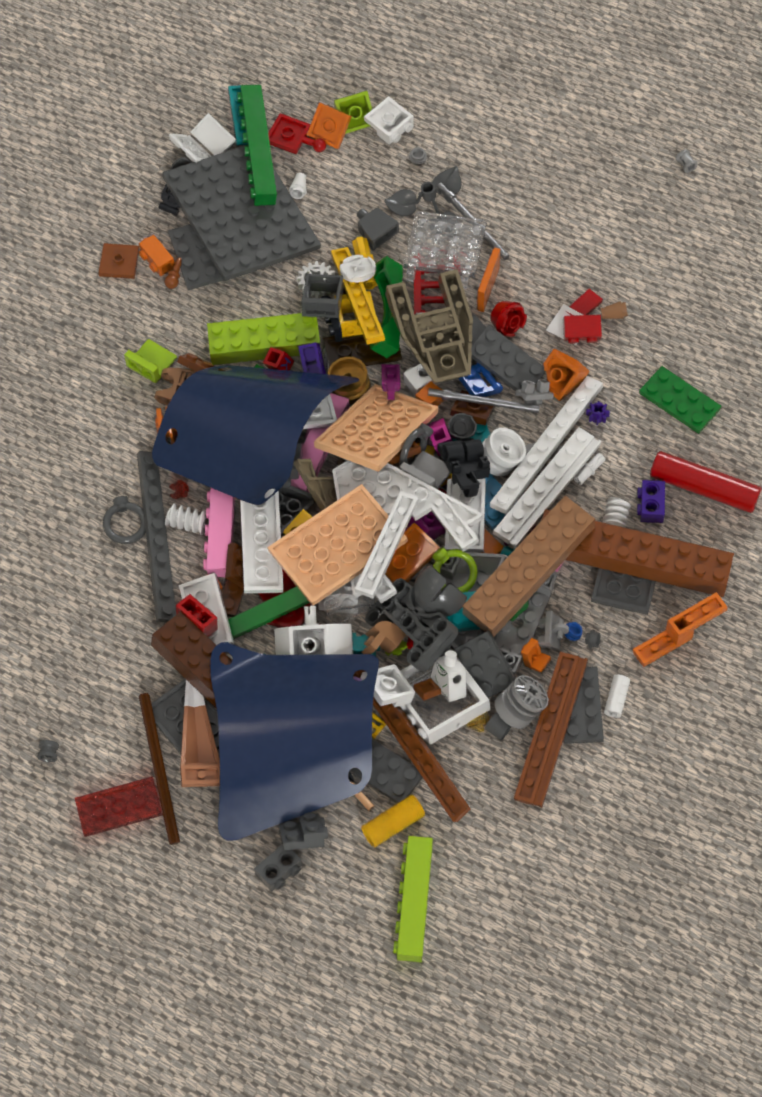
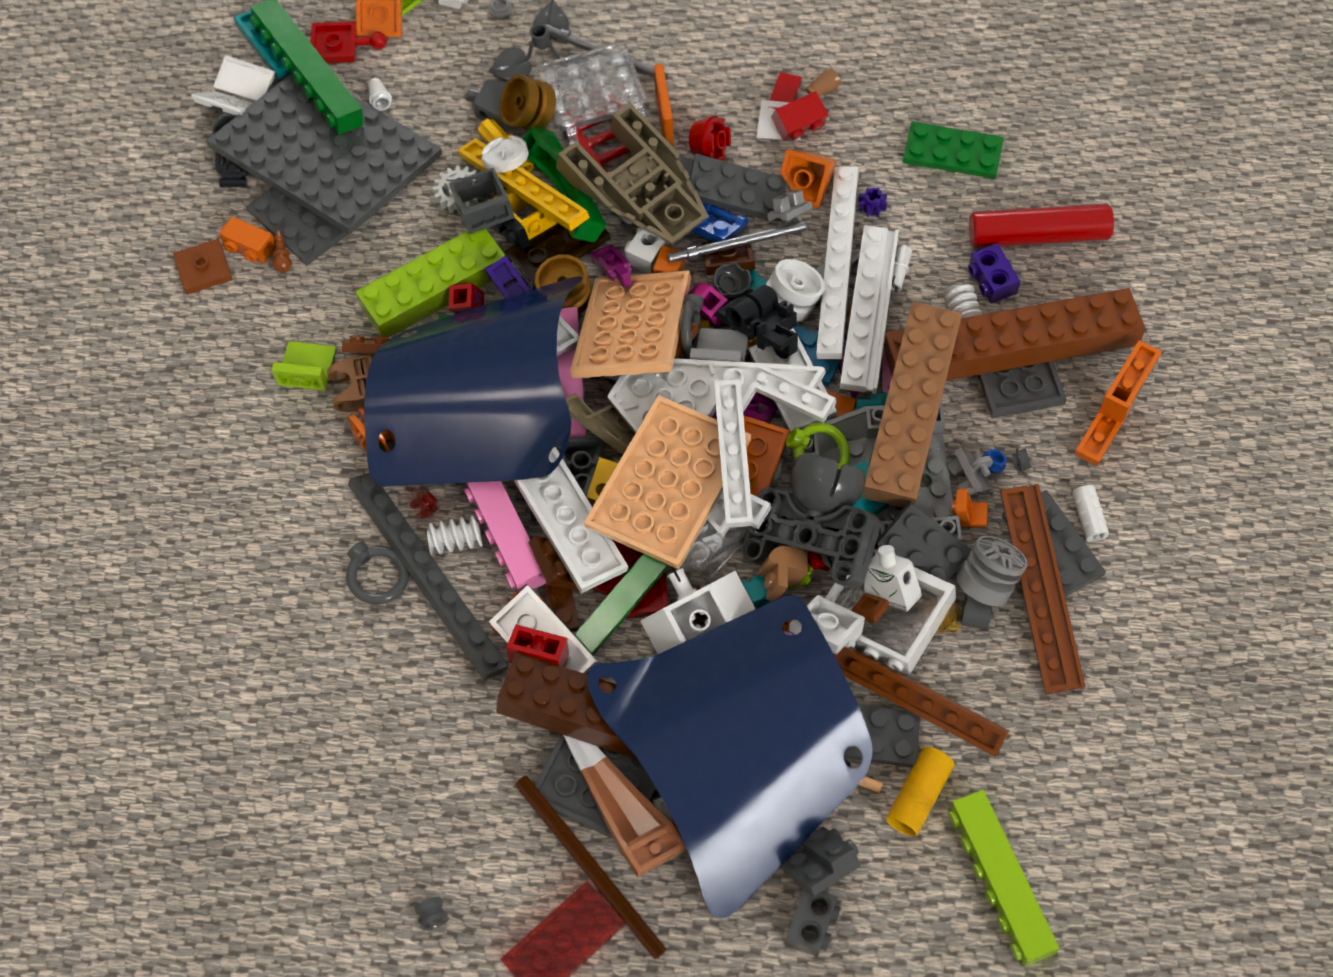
camera: 25 degrees left, 0 degrees up
(392, 238) = (527, 103): none -> pearl gold wheel

